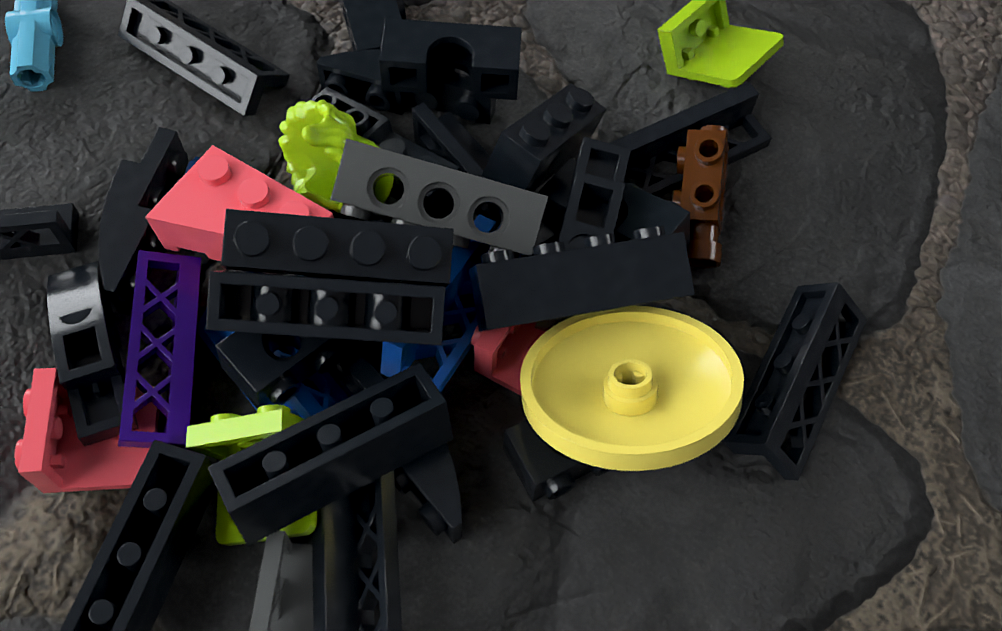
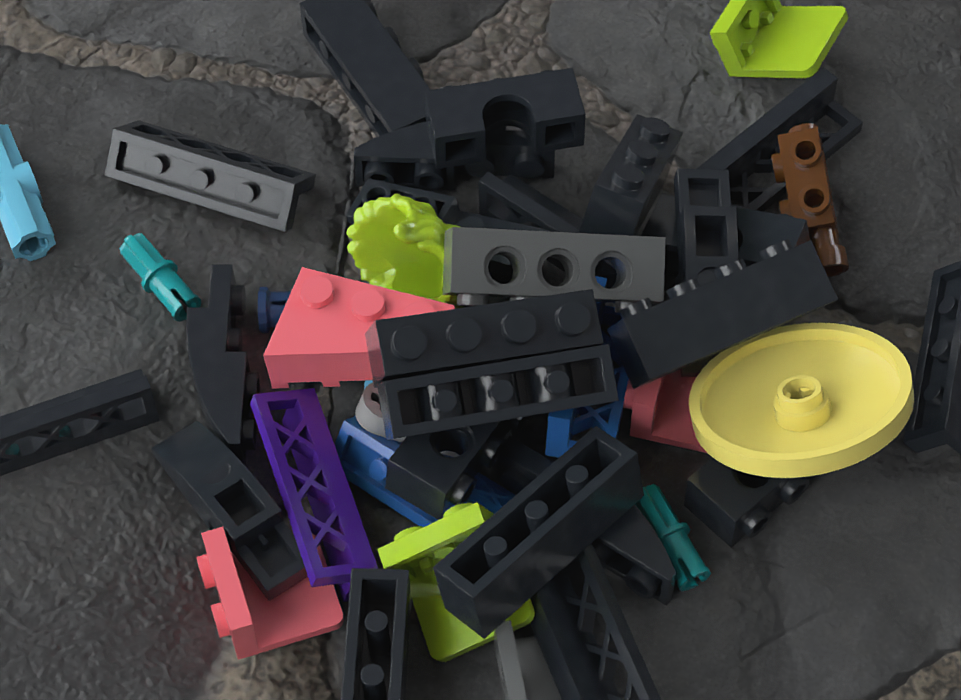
camera: 10 degrees left, 5 degrees down
(121, 124) = (159, 275): none -> teal axle
(475, 480) = (673, 537): none -> teal axle

